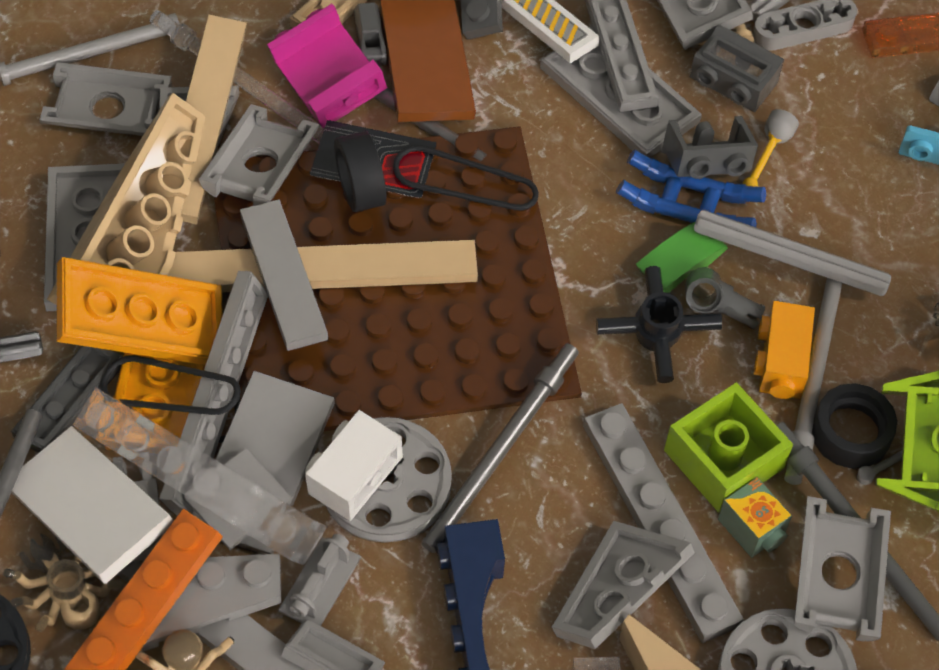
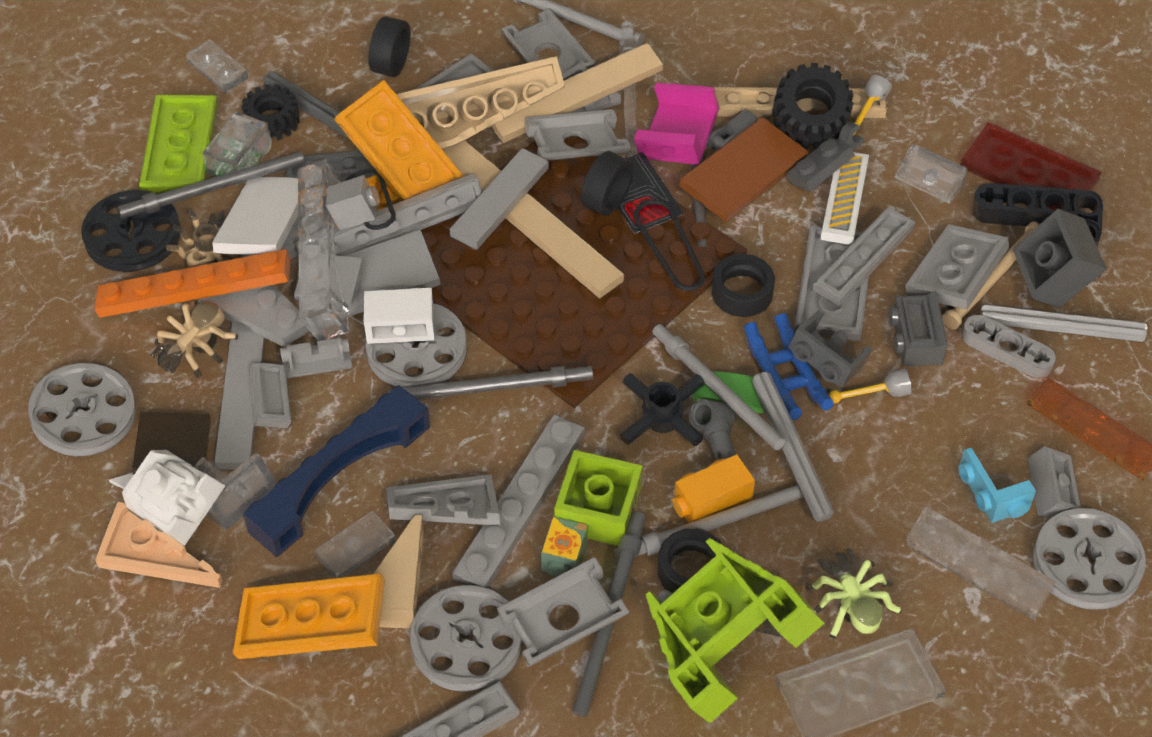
camera: 55 degrees right, 5 degrees down
(179, 402) = (352, 202): none -> light grey brick
(566, 135) = (747, 266): none -> black tyre
(594, 262) = (680, 351): none -> light grey bar

